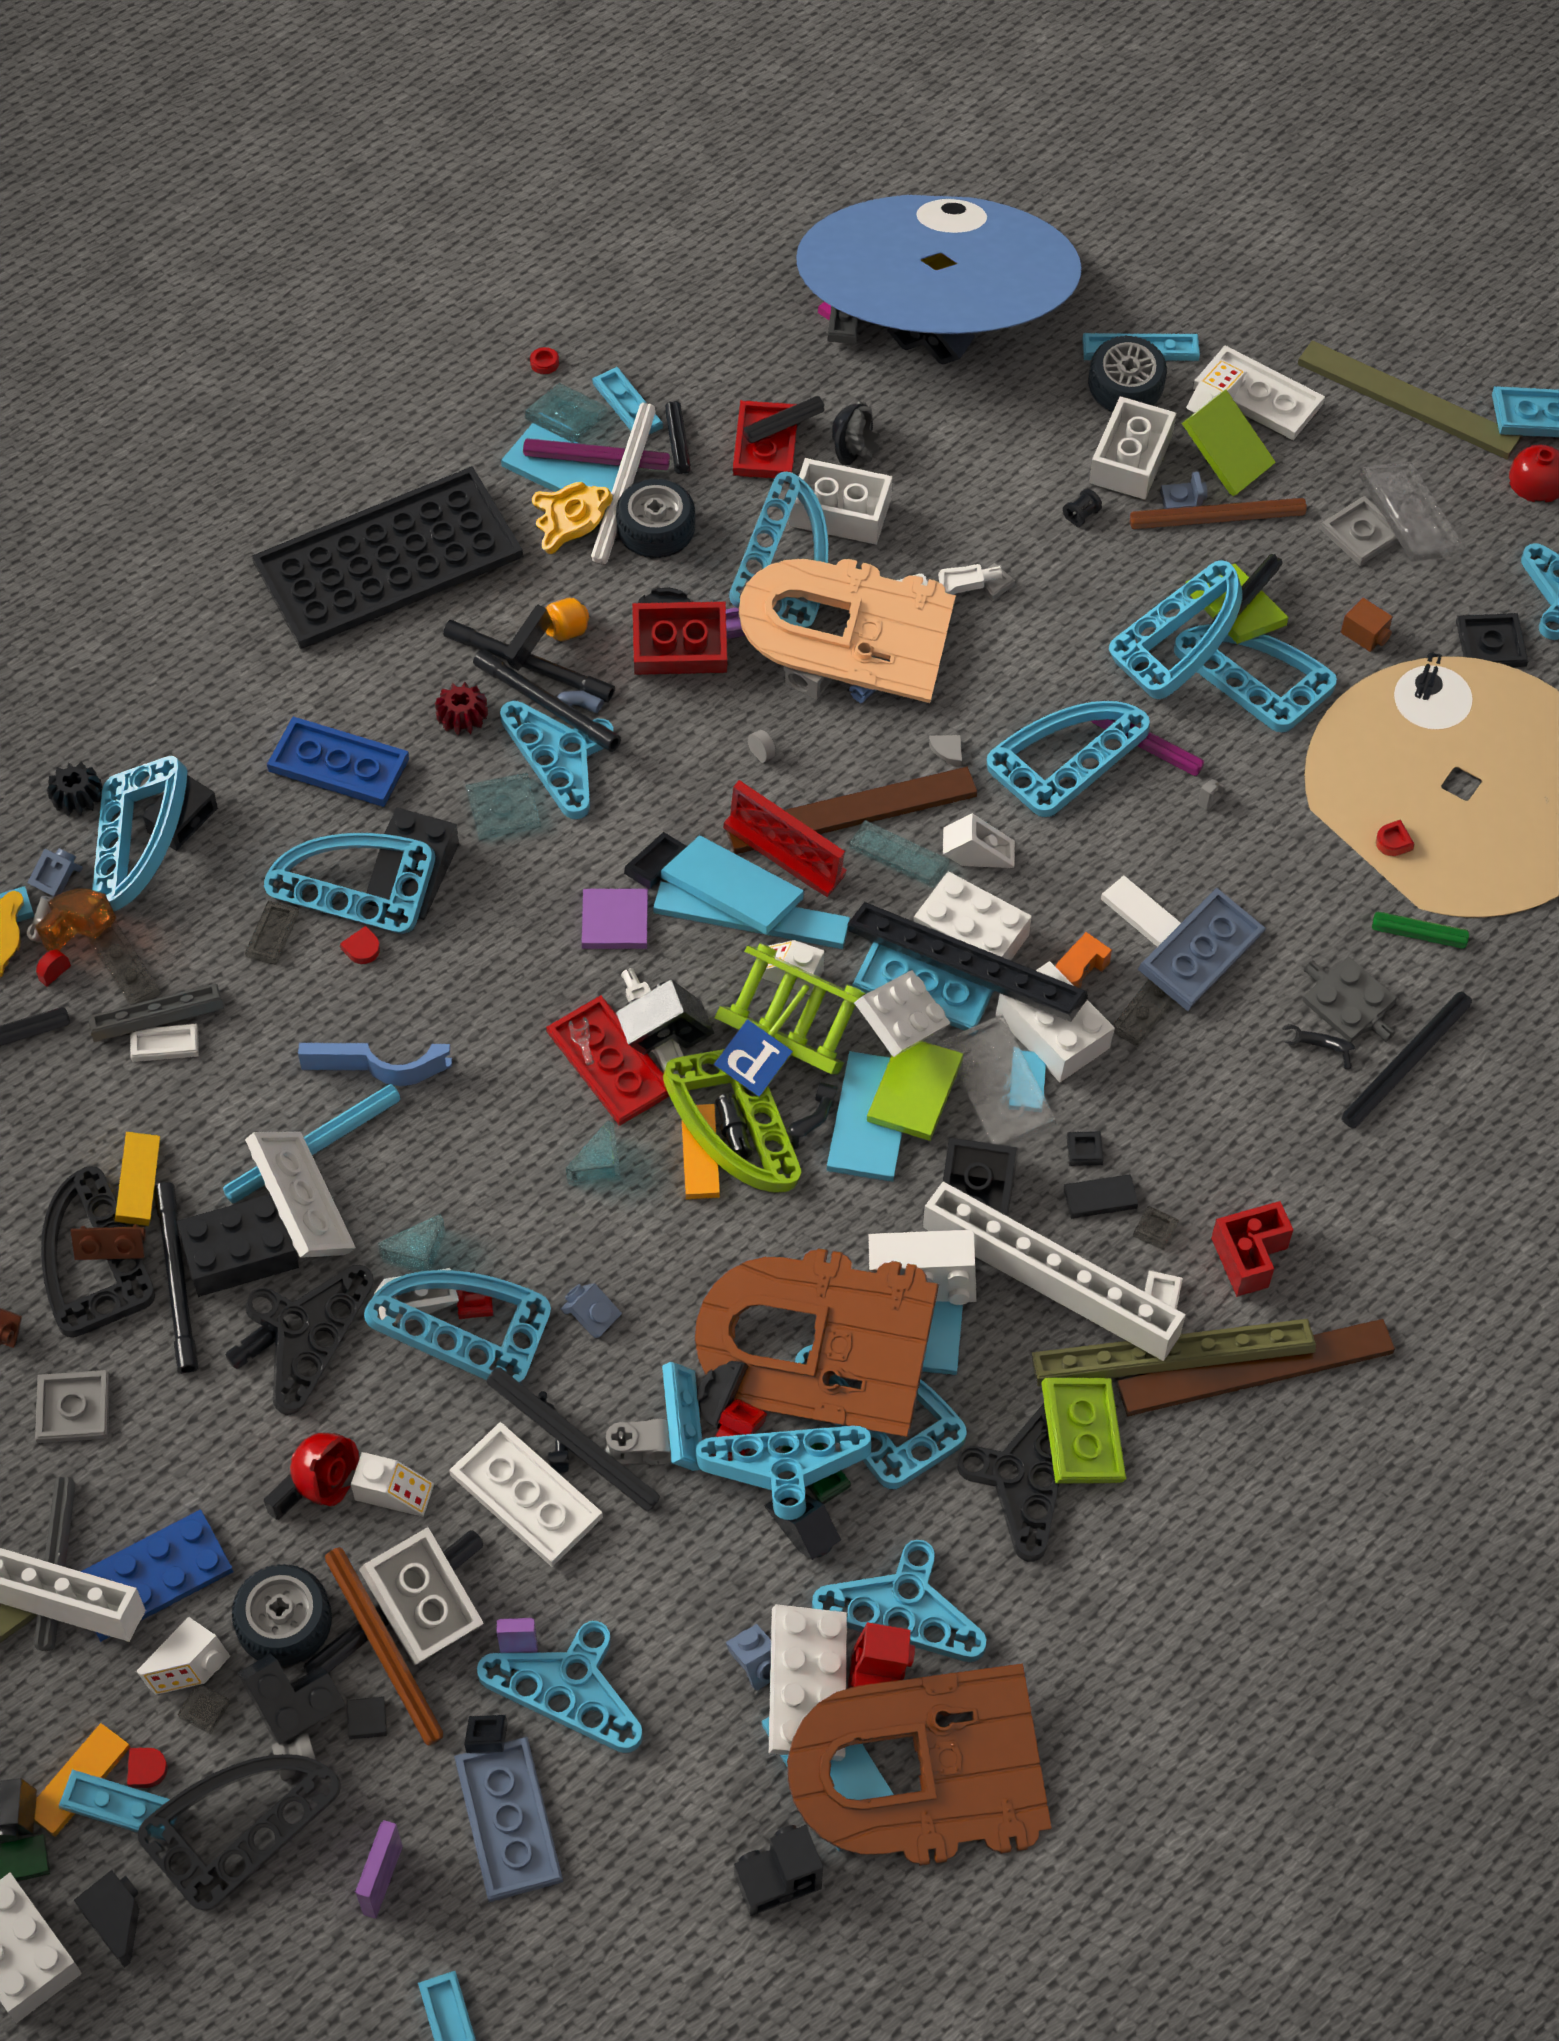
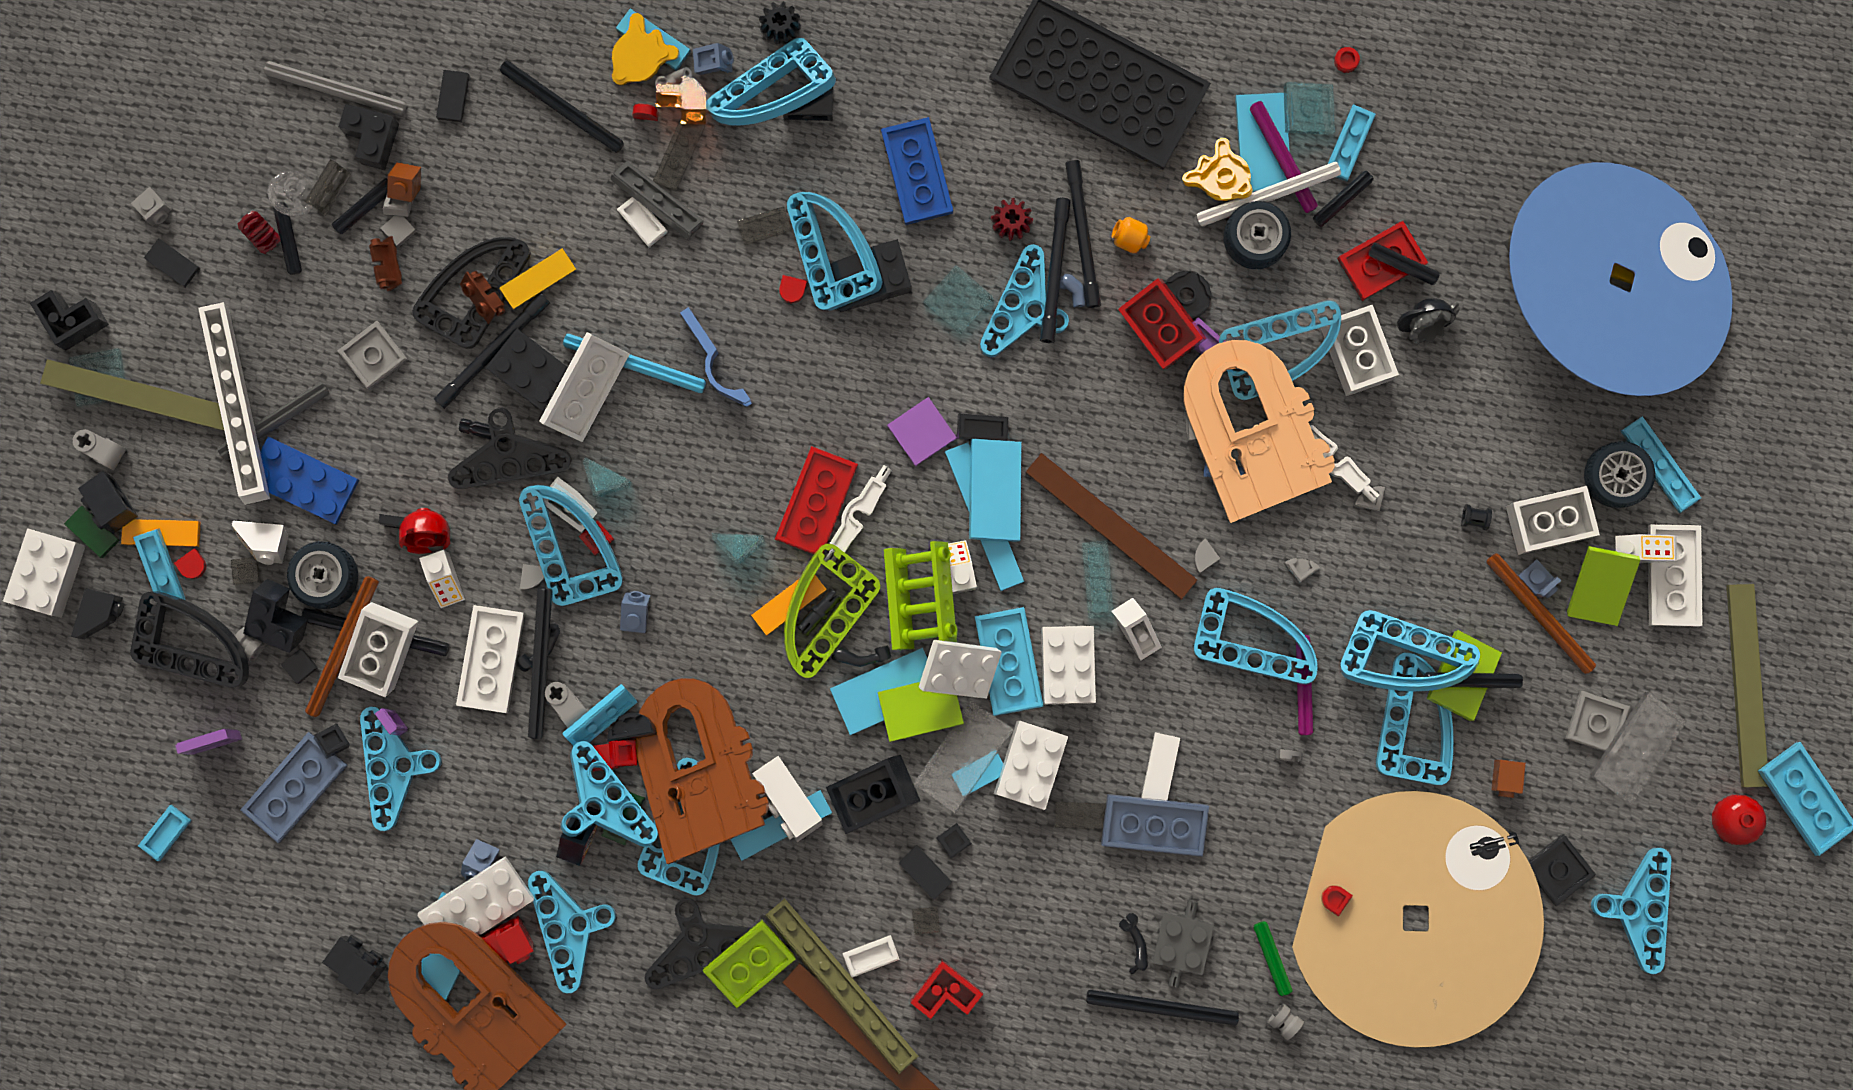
camera: 55 degrees right, 25 degrees up
(464, 1393) = (531, 576): none -> light grey tile
(527, 637) = (1089, 225): black tile -> none
(581, 1036) = (813, 478): clear hand -> none
(662, 1016) = (860, 520): black brick -> none
(755, 1055) = (871, 594): blue piece -> none
(761, 745) = (1119, 434): light grey tile -> none
(785, 840) = (1046, 505): red fence -> none
(968, 961) = (1030, 684): black tile -> none
(1023, 676) = (1301, 568): none -> light grey tile
(1057, 1272) = (836, 882): white brick -> none
(1082, 958) = (1086, 750): orange leg -> none
(1498, 953) = (1286, 1022): none -> light grey wheel

